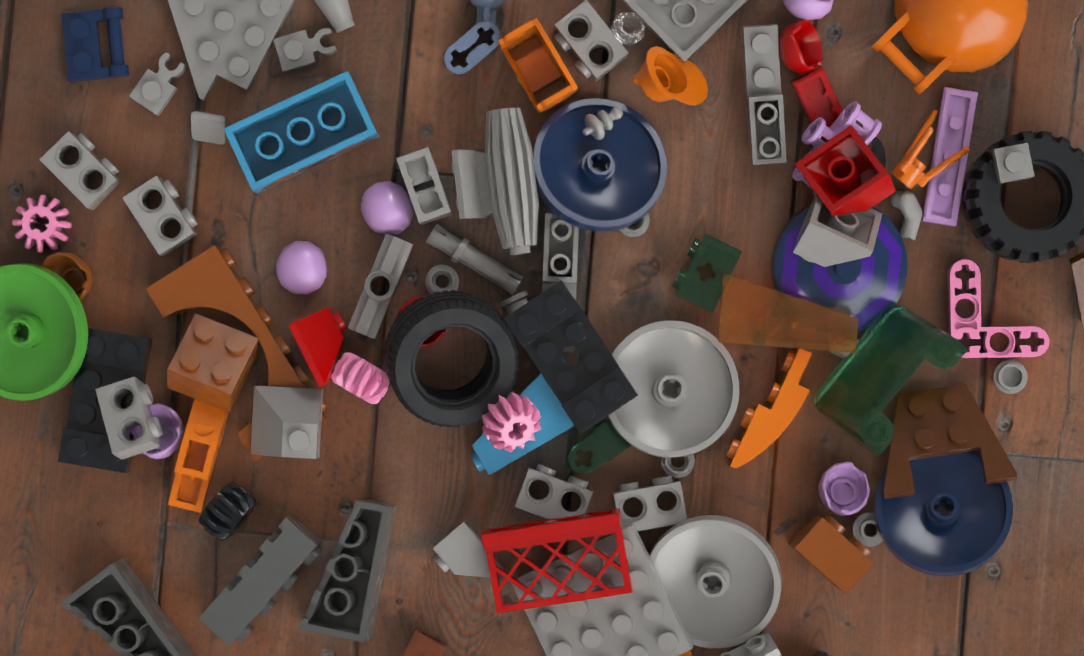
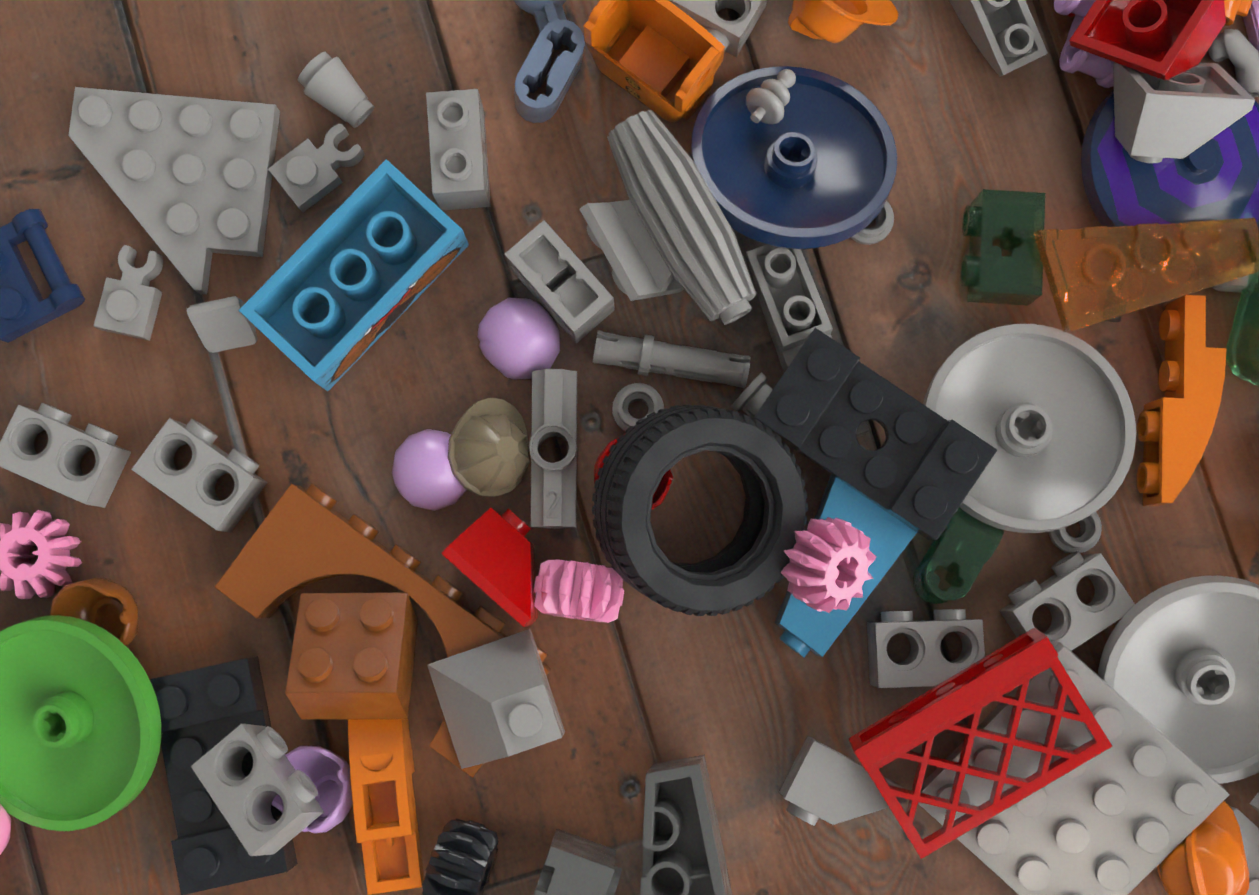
camera: 25 degrees left, 5 degrees down
(342, 269) = (489, 448): none -> dark tan piece
(395, 76) = (458, 149): none -> light grey brick

